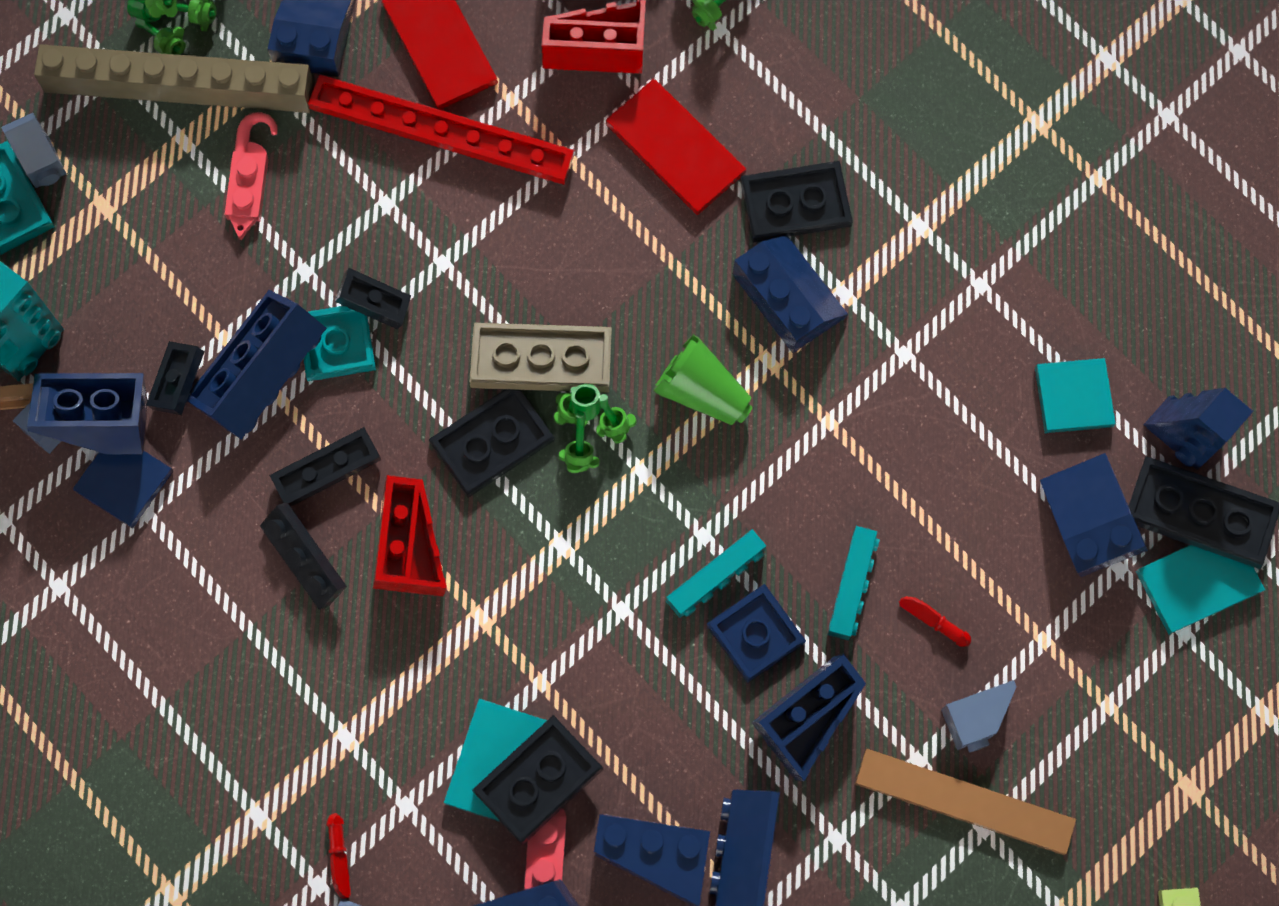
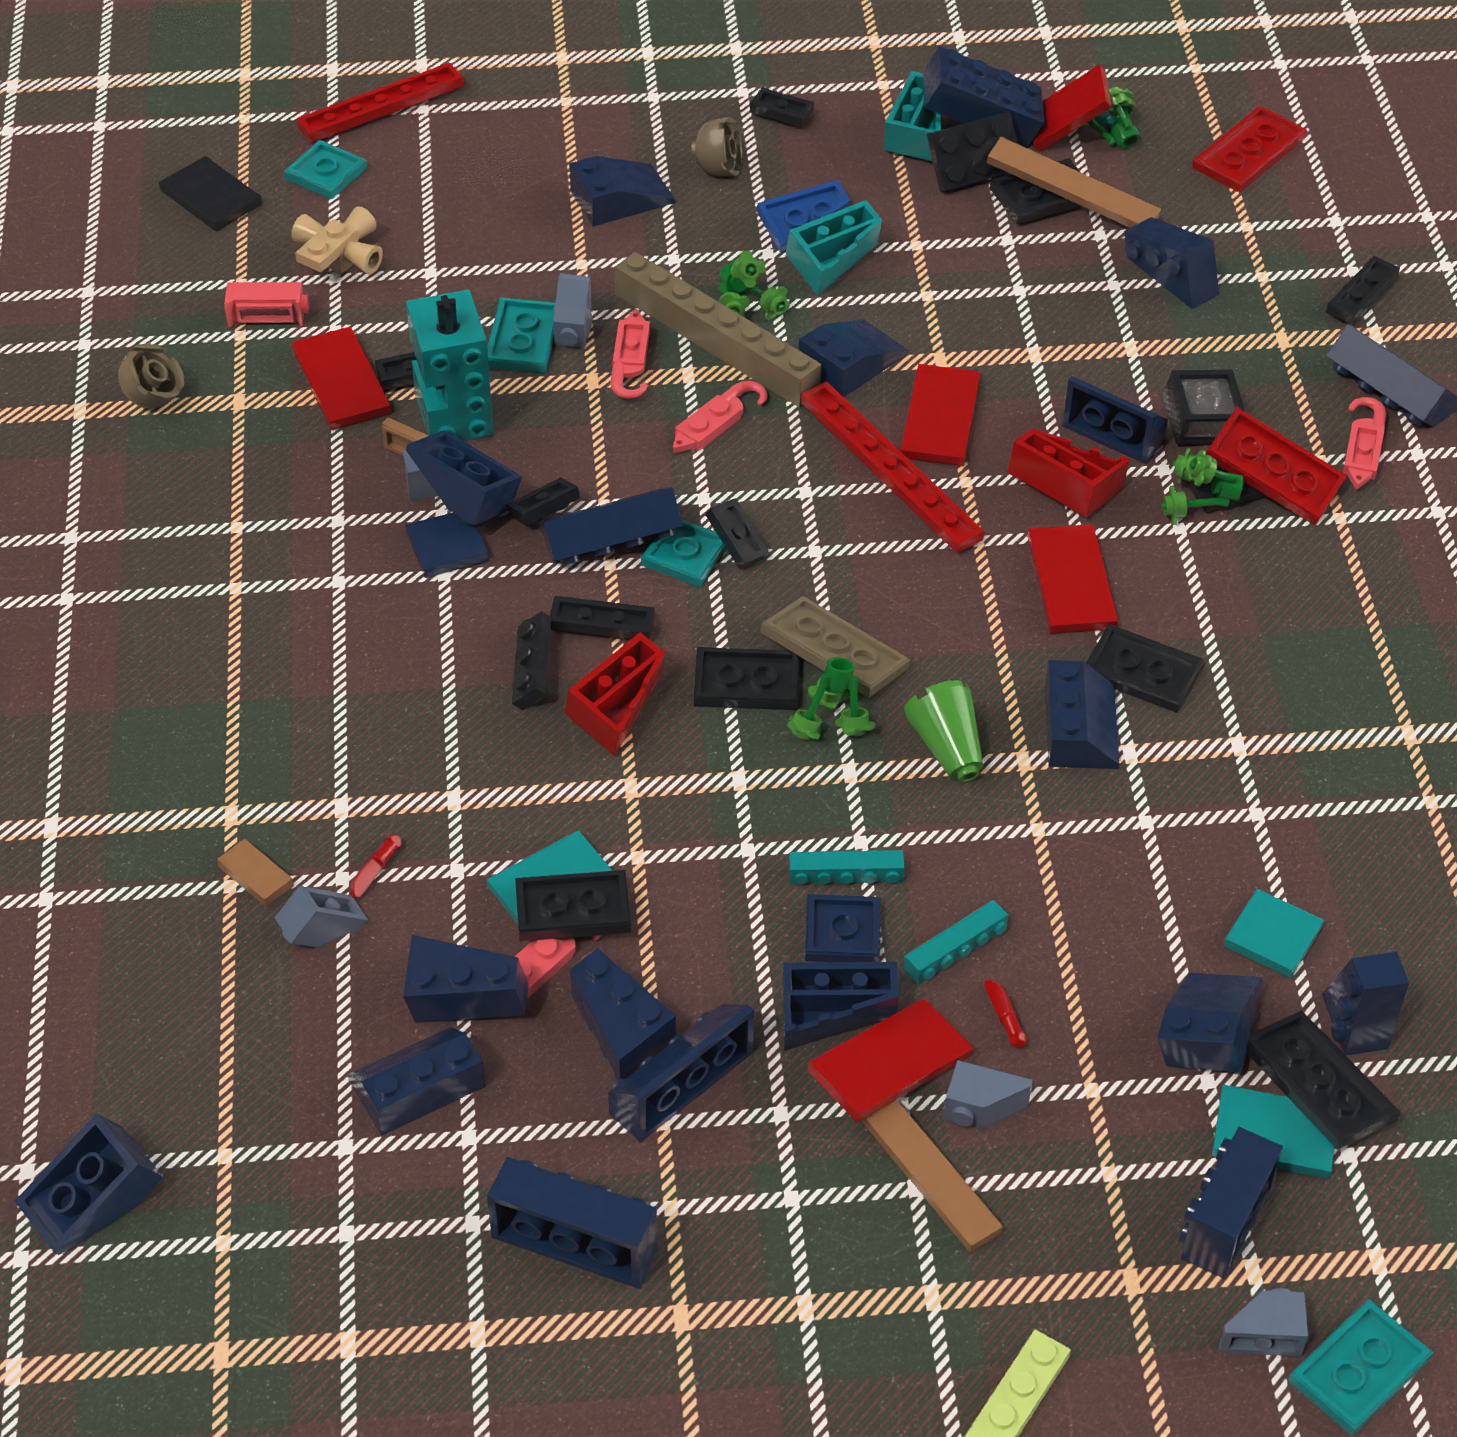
camera: 40 degrees right, 25 degrees down
(118, 157) = (630, 354): none -> coral plate
(889, 735) = (889, 1059): none -> red tile
(1228, 680) = (1229, 1201): none -> dark blue brick

